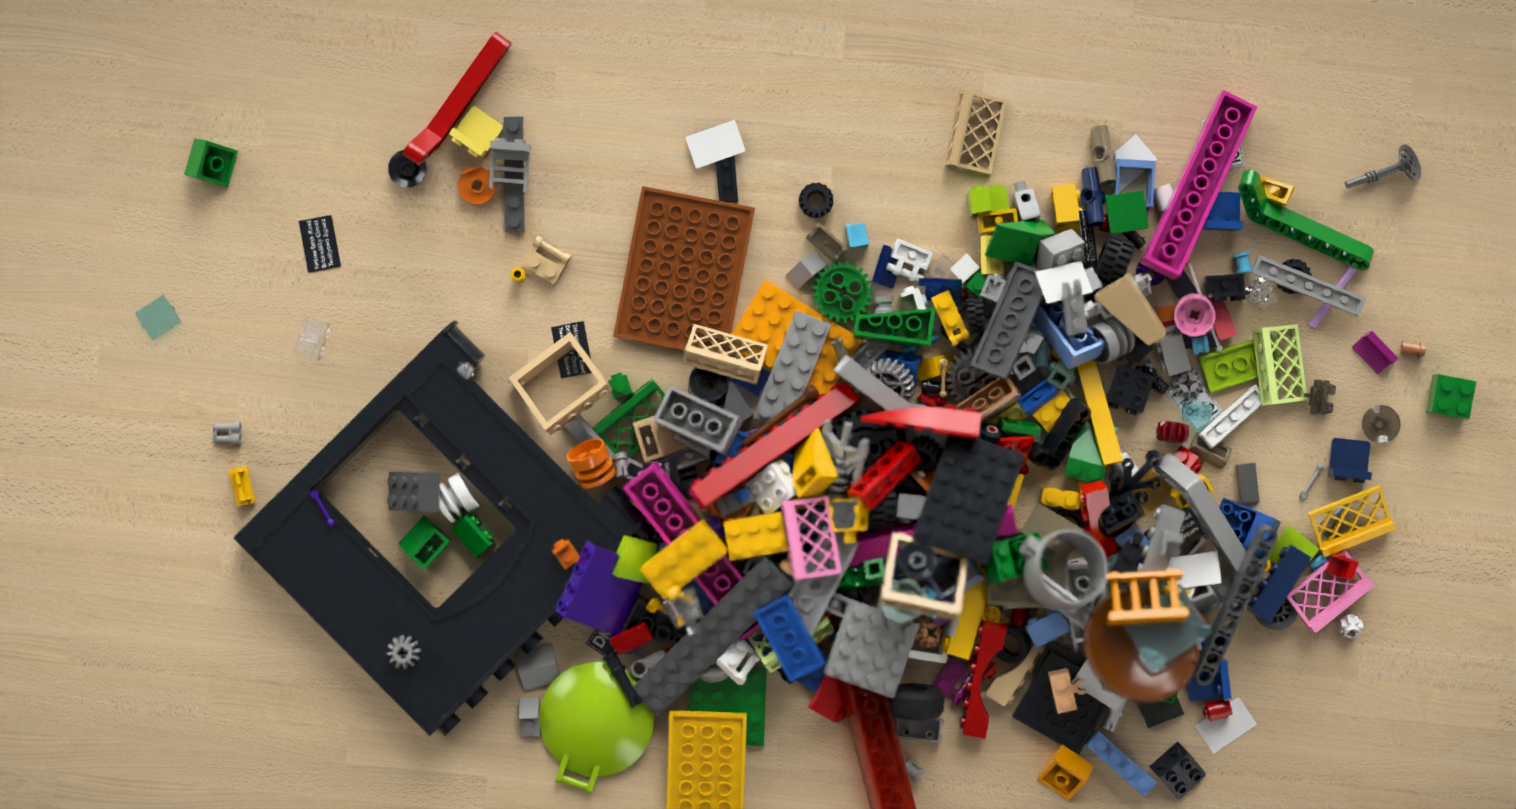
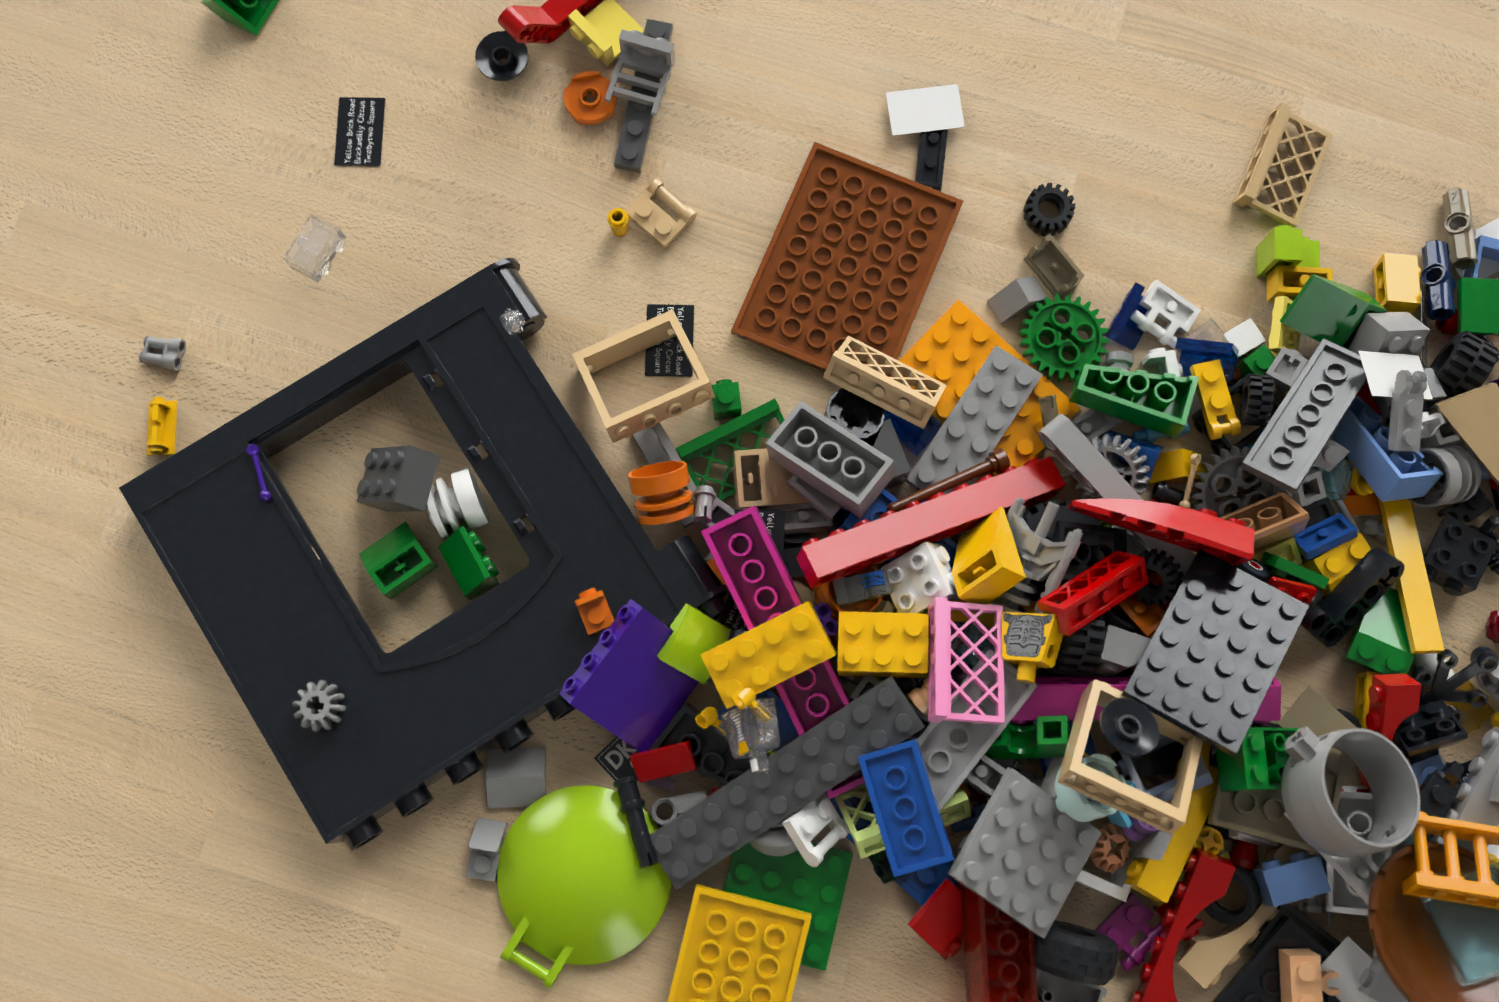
camera: 10 degrees right, 10 degrees down
(158, 317) = (114, 180): clear light blue piece -> none
(857, 235) = (1096, 269): medium azure panel -> none
(1025, 210) = (1347, 265): torso -> none
(1054, 497) = (1340, 694): yellow brick -> none
(1060, 374) = (1360, 519): sand green brick -> none

